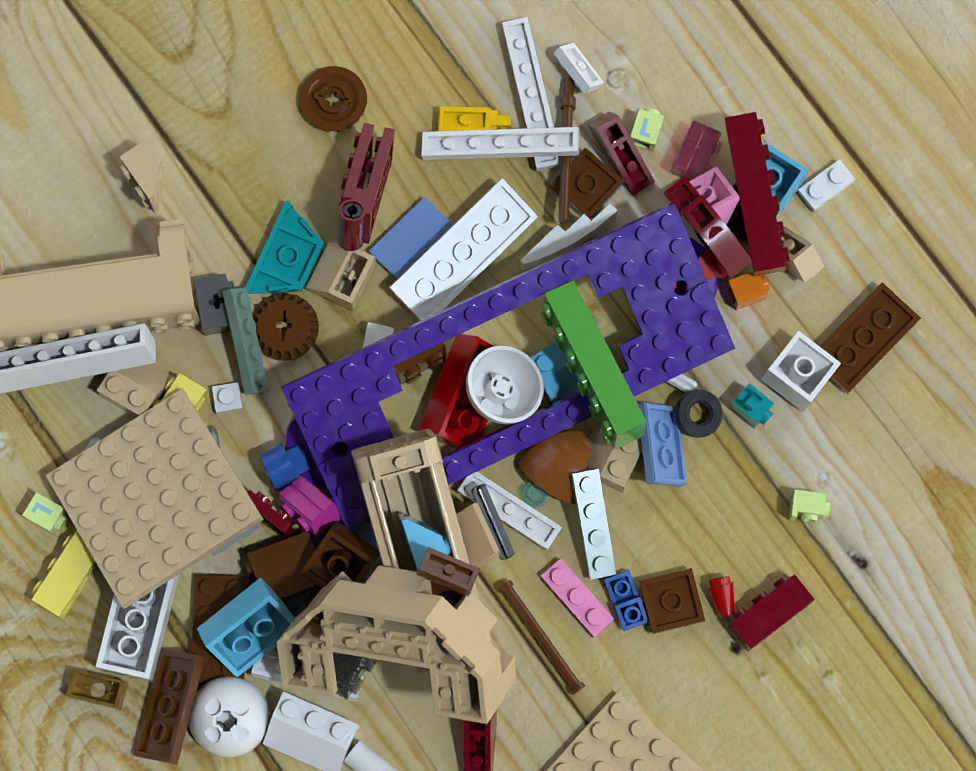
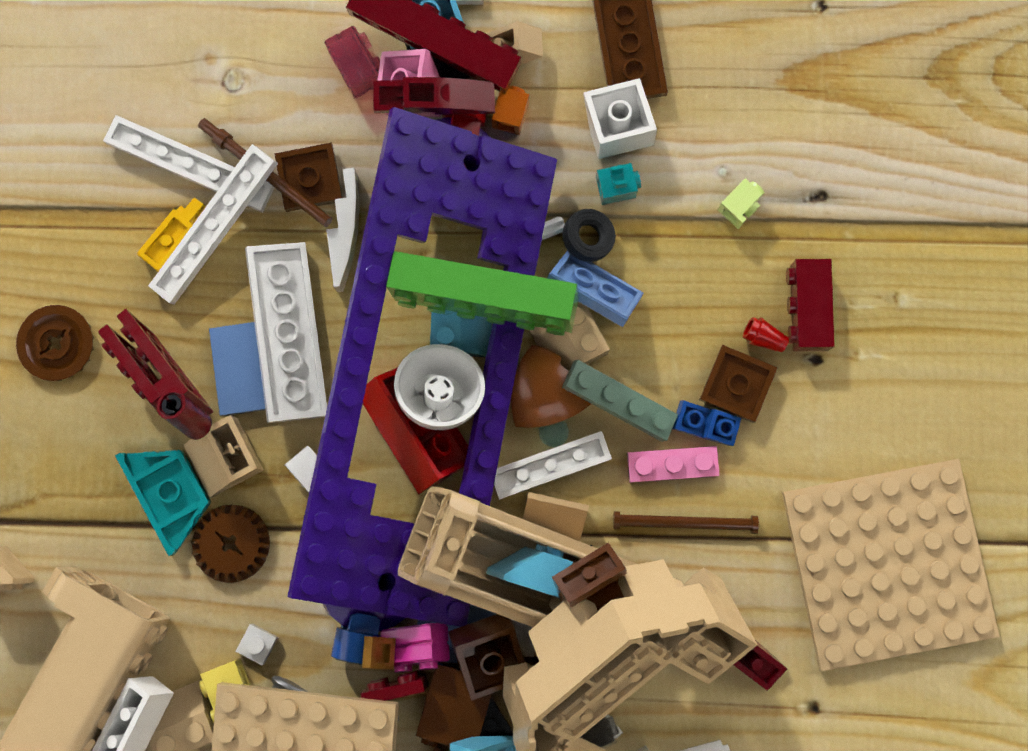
camera: 50 degrees left, 5 degrees up
(208, 290) = (145, 591): dark grey brick -> none
(245, 341) = (216, 590): sand green plate -> none
(286, 482) = (378, 652): none -> pearl gold plate
(411, 368) = (360, 457): reddish brown plate -> none
(483, 498) = (550, 488): black axle -> none
(578, 68) = (197, 105): white plate -> none
(621, 152) = (302, 125): dark red slope -> none
(647, 128) = (300, 88): yellowish green brick -> none

